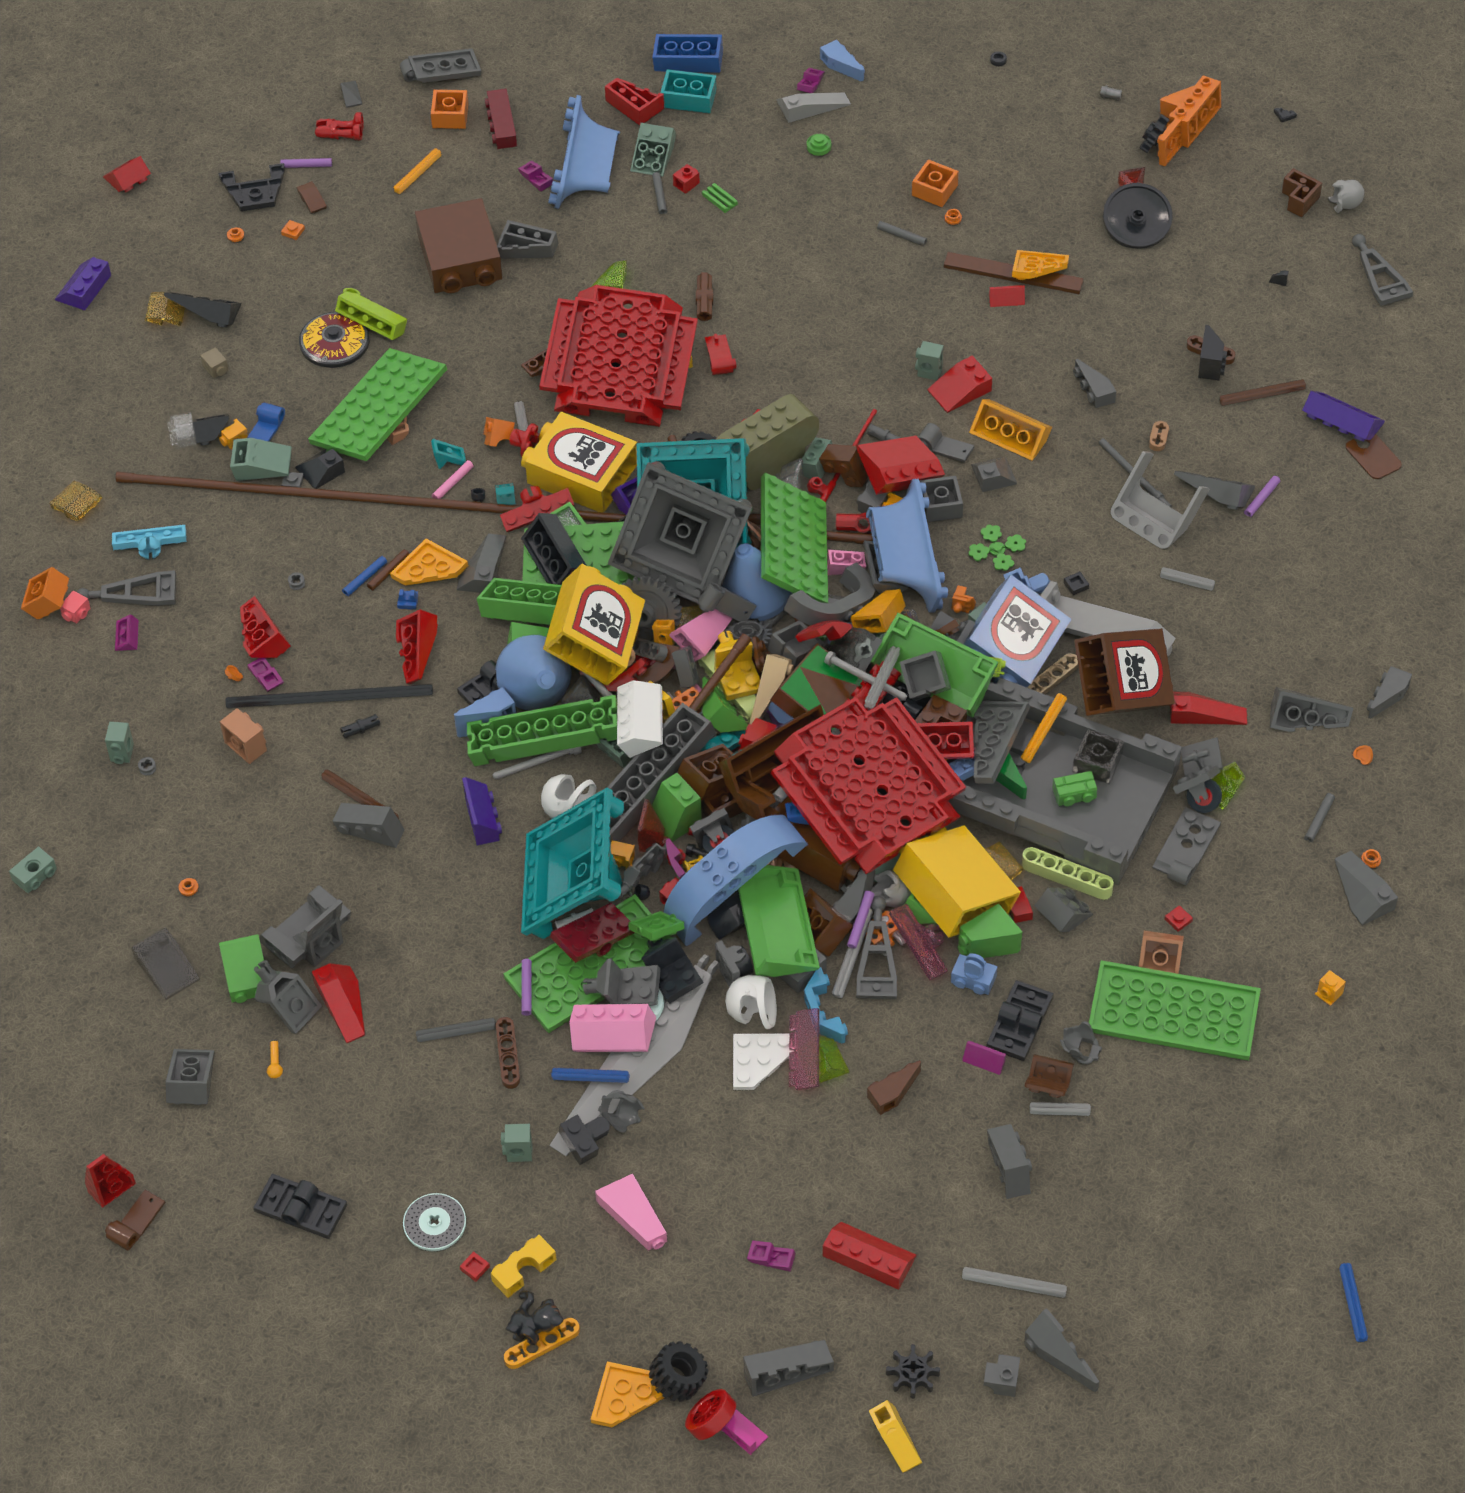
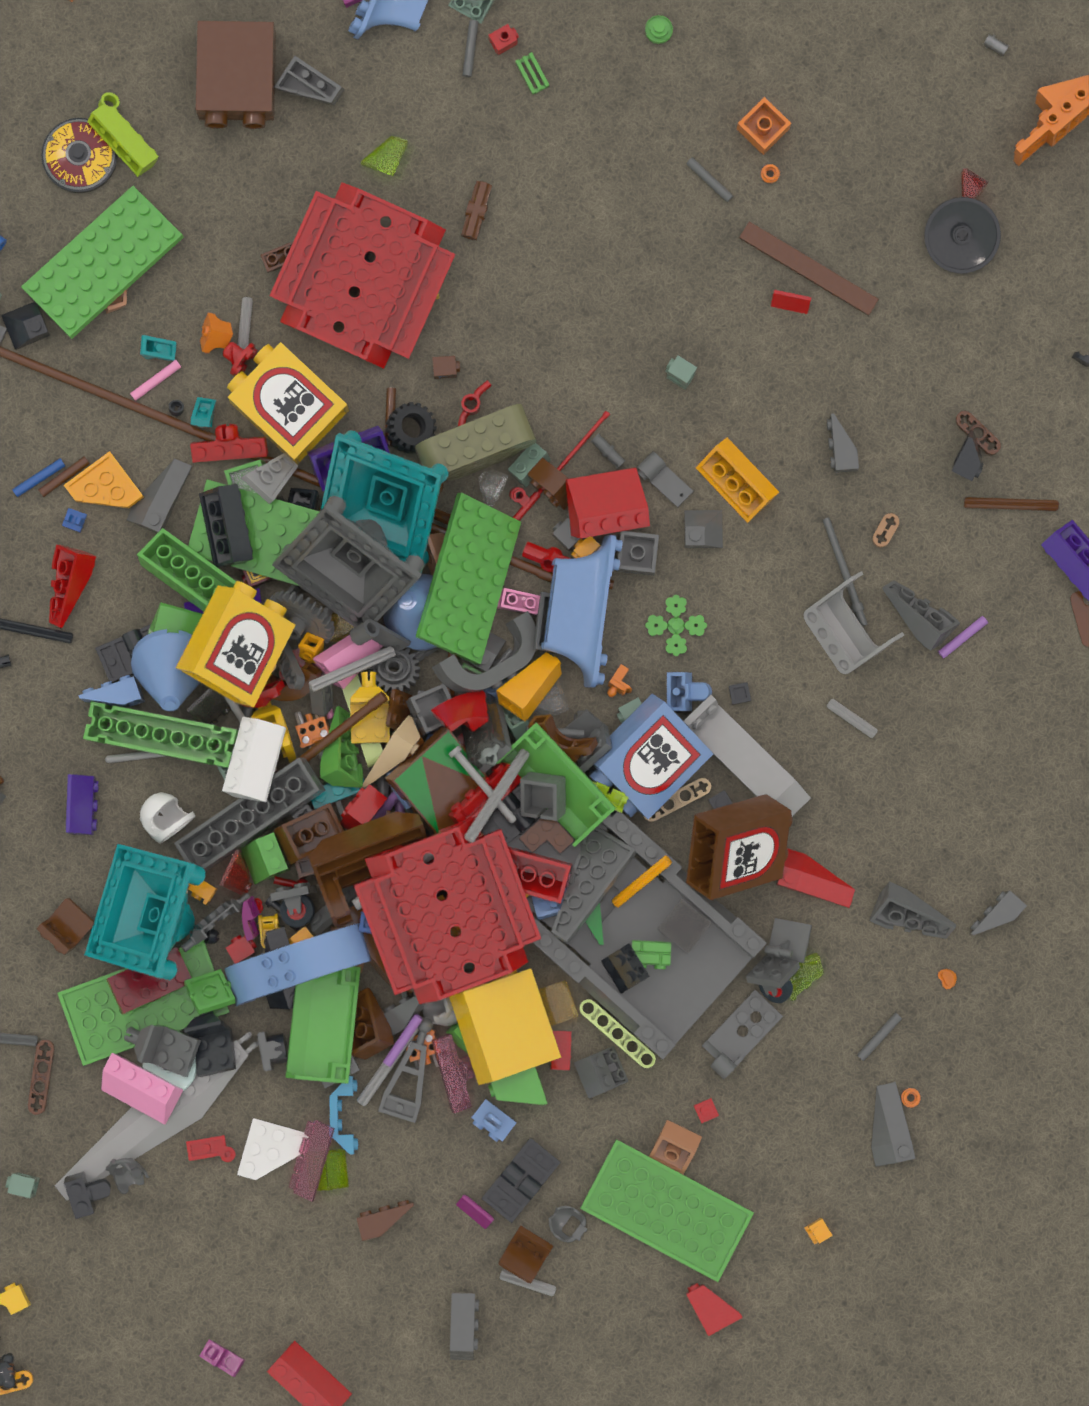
camera: 10 degrees right, 30 degrees up
(496, 914) = (66, 926): none -> reddish brown bracket
(526, 1003) = (74, 1017): medium lavender piece -> none
(584, 510) = (271, 477): none -> light grey wing
(590, 1075) = (108, 1127): blue axle -> none
(631, 1209) = (110, 1280): bright pink slope -> none
(698, 1070) = (210, 1148): none -> red hinge
(708, 632) = (352, 669): none -> light grey axle
(715, 409) = (445, 367): none -> reddish brown brick
(720, 355) = (470, 292): red door -> none
(757, 995) = (277, 1089): white piece -> none
(961, 384) = (704, 407): red slope -> none
(1035, 264) = (835, 270): light orange plate -> none
(1055, 799) = (625, 968): none -> black plate
(1152, 133) = (1018, 127): black gear -> none
(1252, 1081) = (711, 1309): none -> red slope

